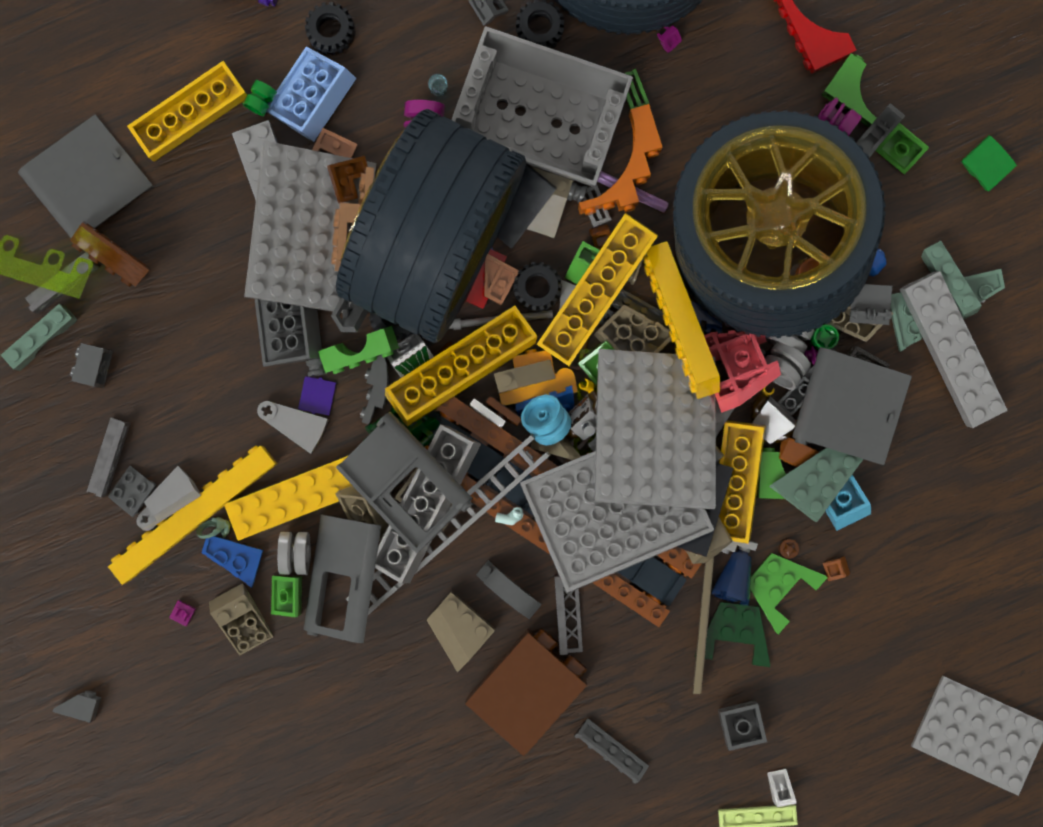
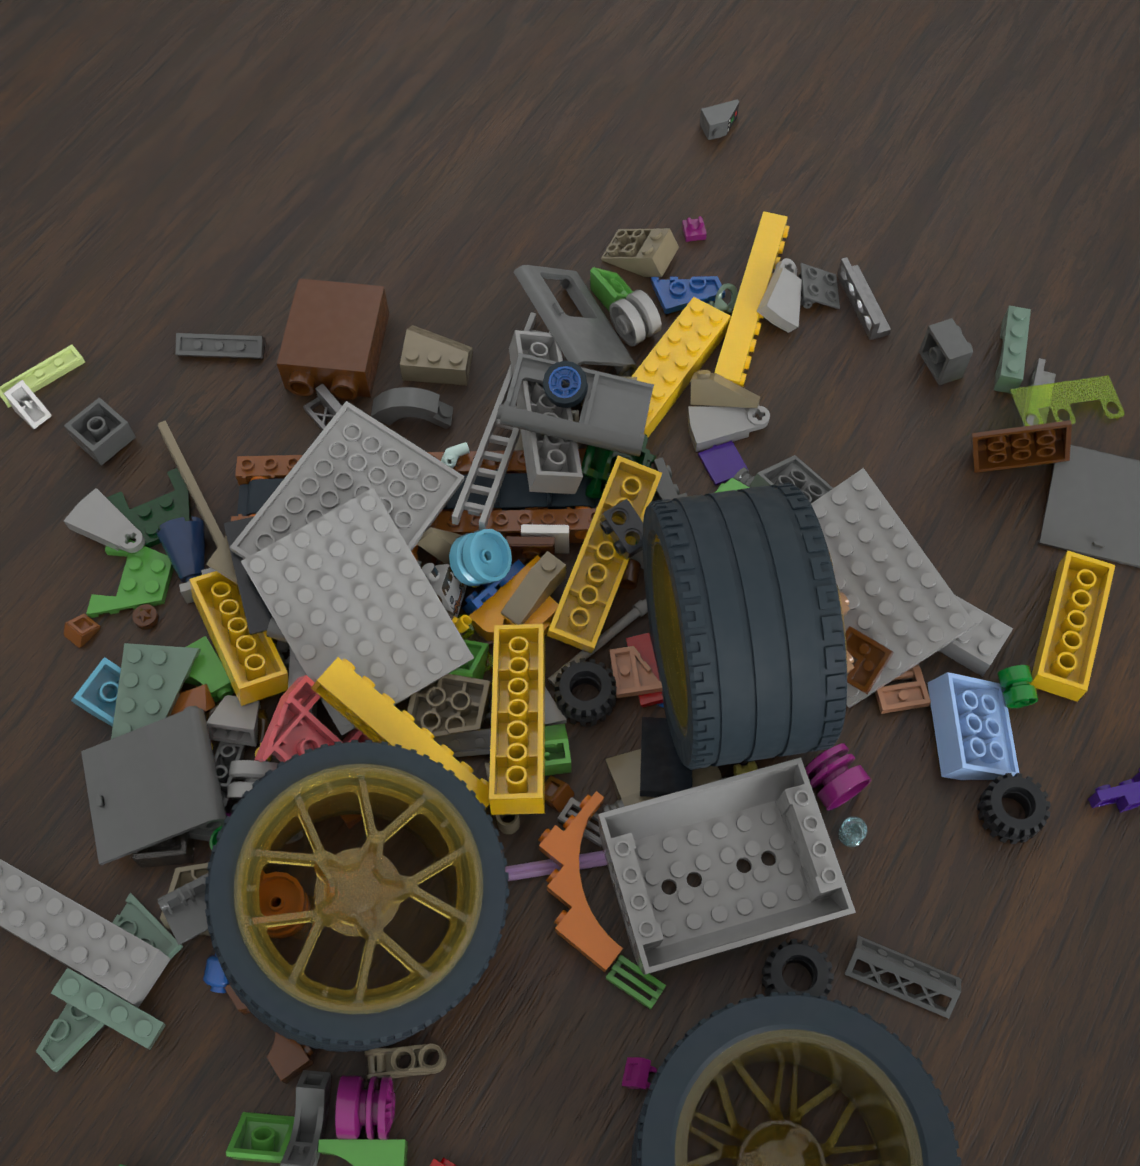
camera: 145 degrees right, 25 degrees down
(278, 445) = (715, 390): none -> dark tan slope
(411, 498) = (573, 375): none -> wheel
(441, 362) = (632, 527): none -> black brick
(779, 641) = (104, 523): none -> light grey piece

